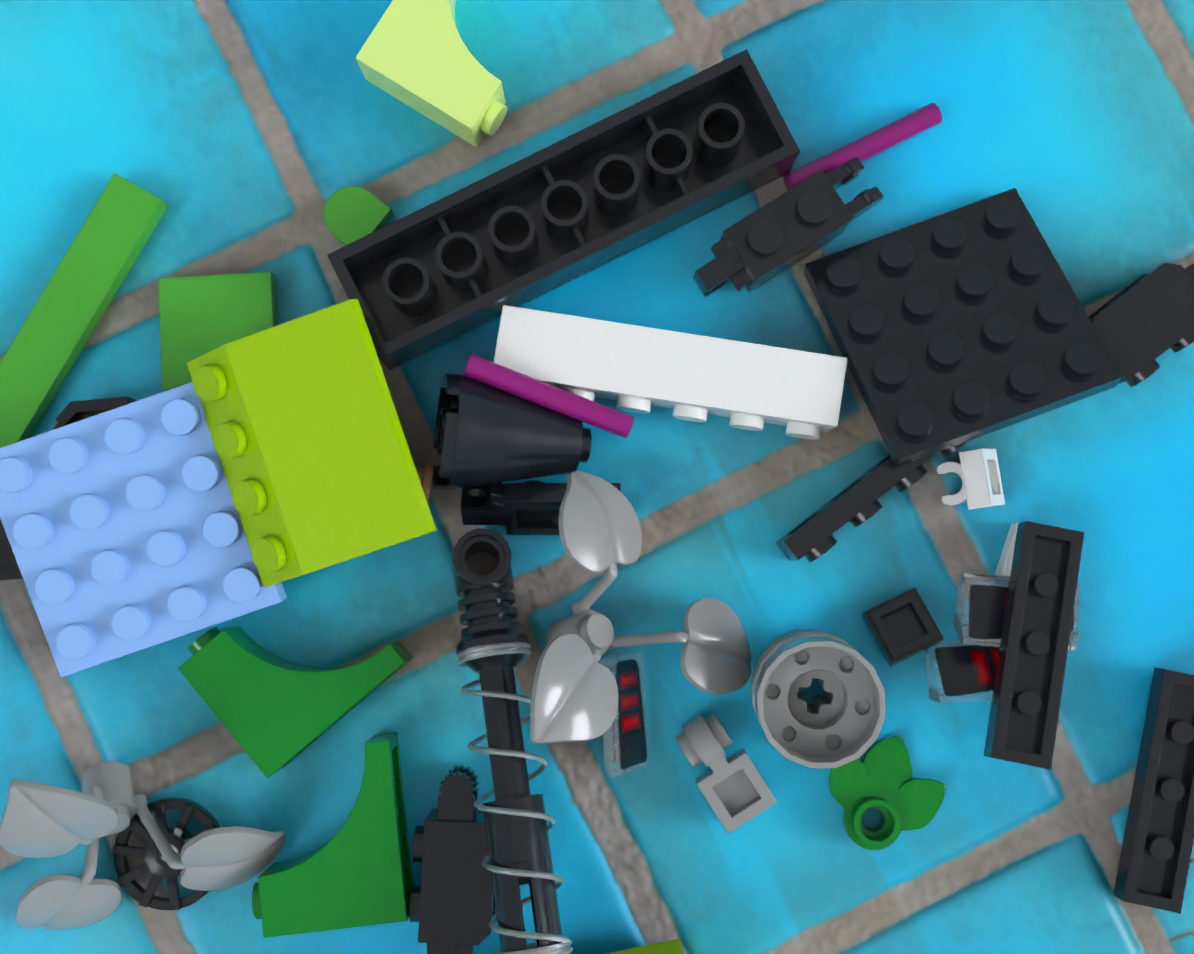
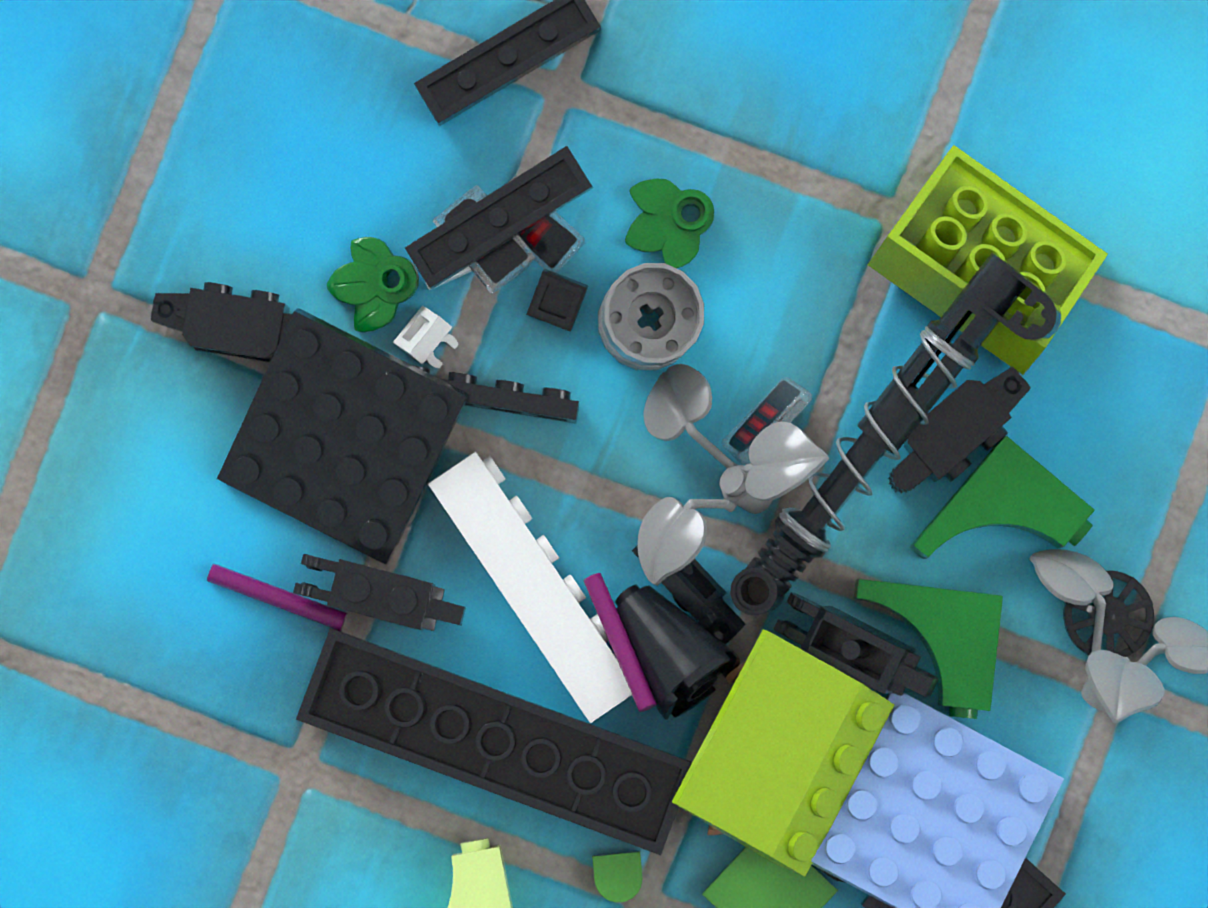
camera: 130 degrees left, 0 degrees up
(343, 600) = (857, 649): none -> black hinge
(731, 784) = (749, 315): light grey plate -> none
(1070, 474) = (367, 286): none -> green plate

